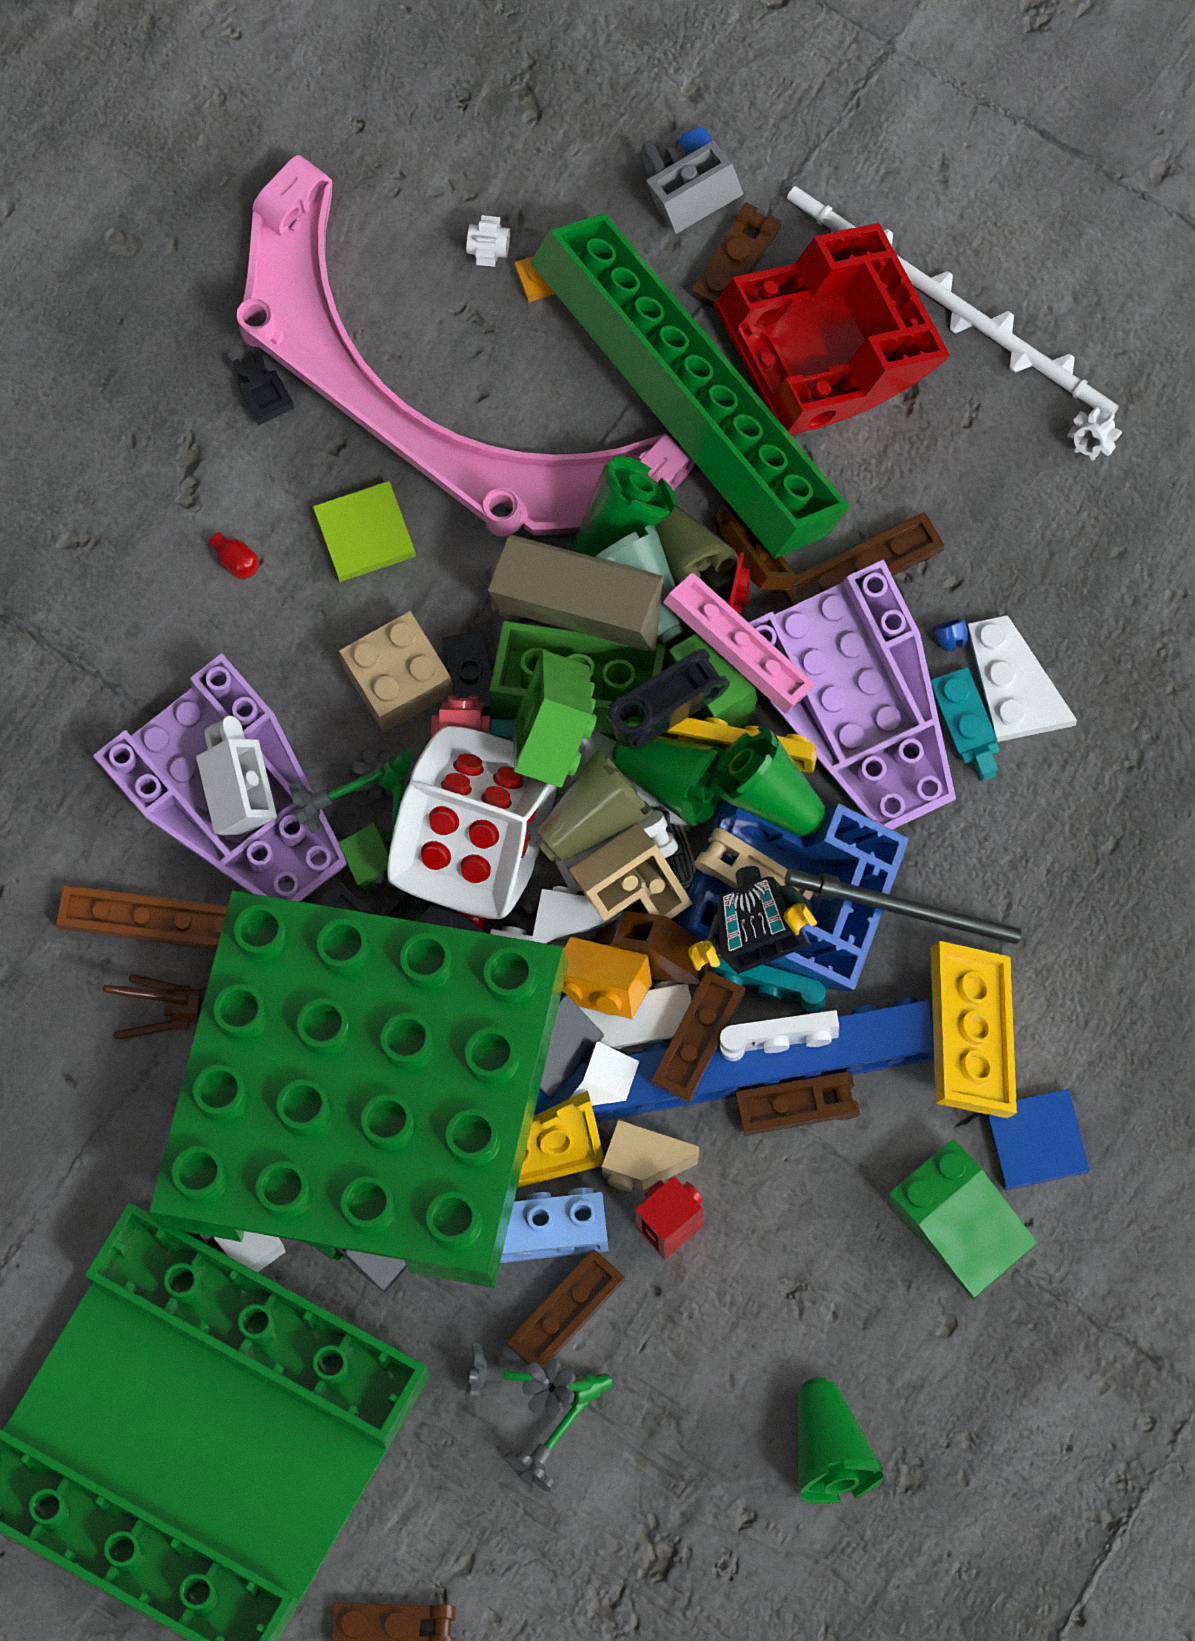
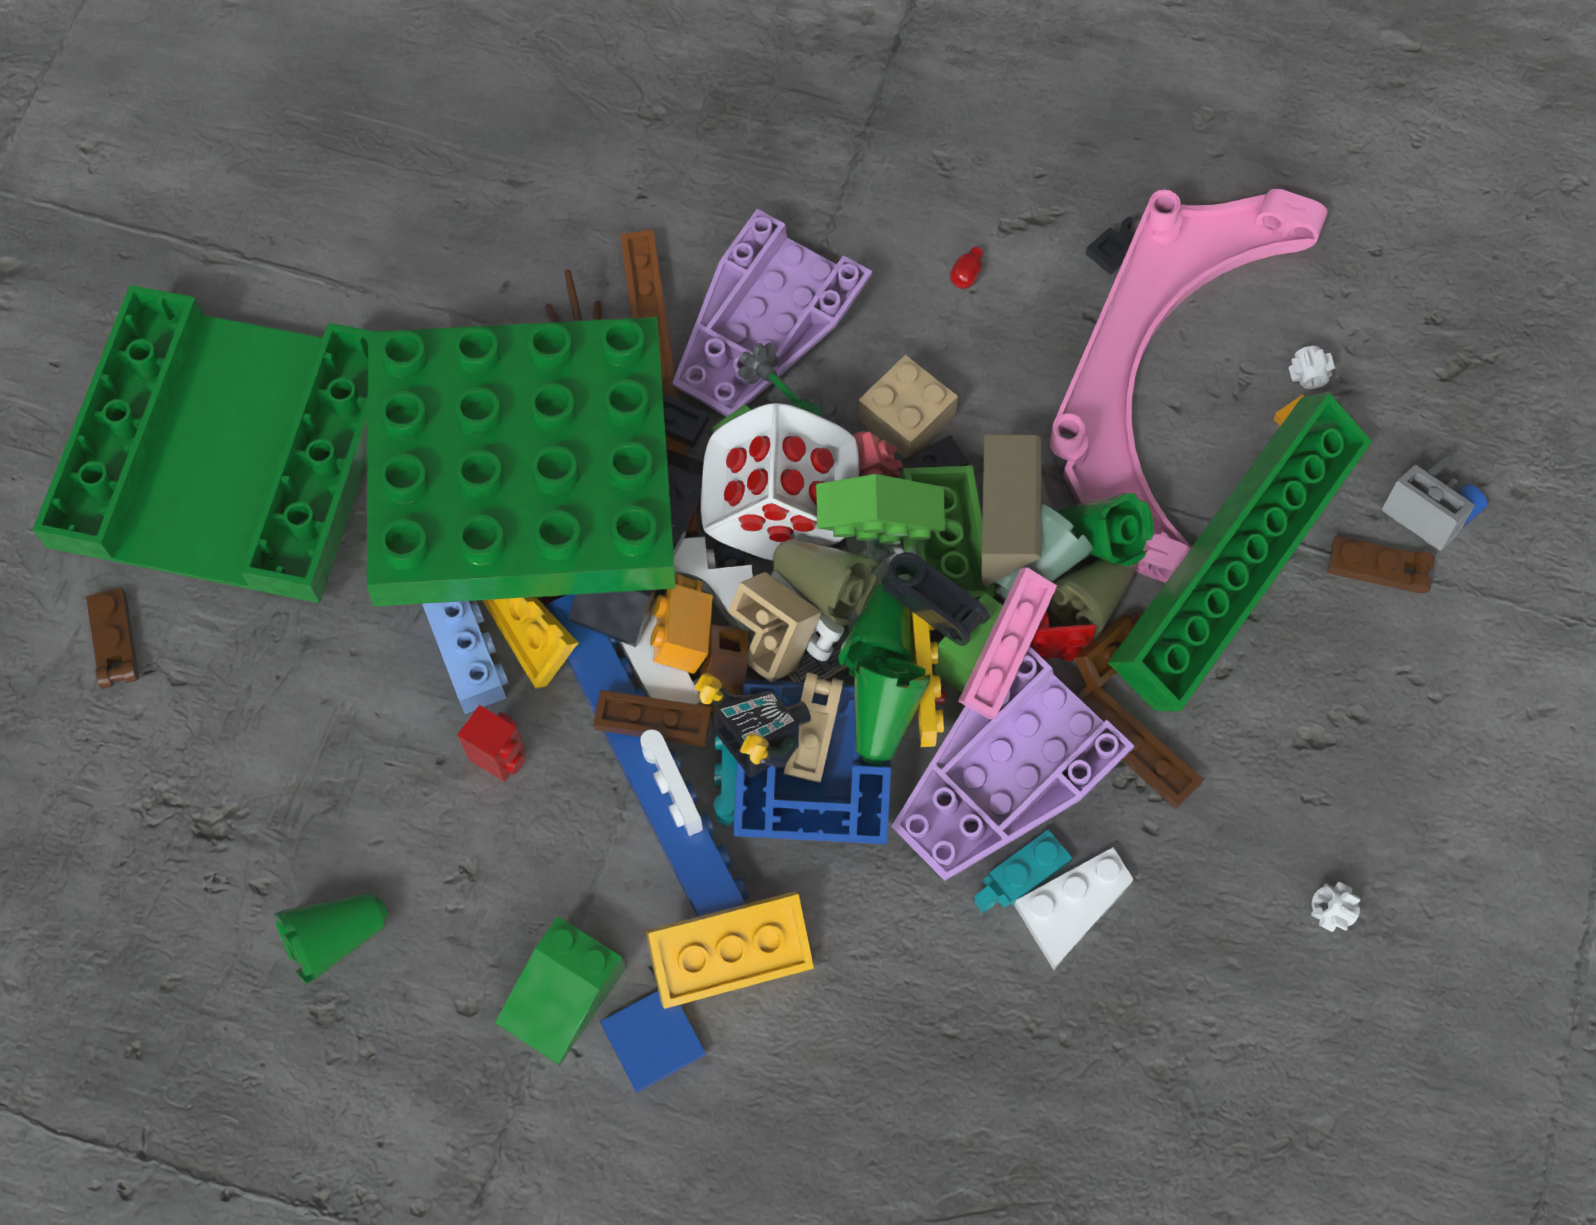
camera: 70 degrees right, 5 degrees down
(235, 780) = (769, 311): white brick -> none
(364, 531) = (1023, 354): lime tile -> none
(550, 1391) = (307, 681): dark grey plant -> none
(566, 1309) = (400, 691): reddish brown plate -> none
(608, 1076) = (599, 657): white sticker -> none
(644, 1157) = (545, 713): tan slope -> none
(796, 1103) = (627, 823): reddish brown plate -> none
(829, 887) = (811, 780): pearl dark grey bar -> none
(831, 329) = (1341, 653): red slope -> none
(951, 634) = (1100, 835): blue hinge -> none
(965, 315) = (1407, 765): white plant -> none

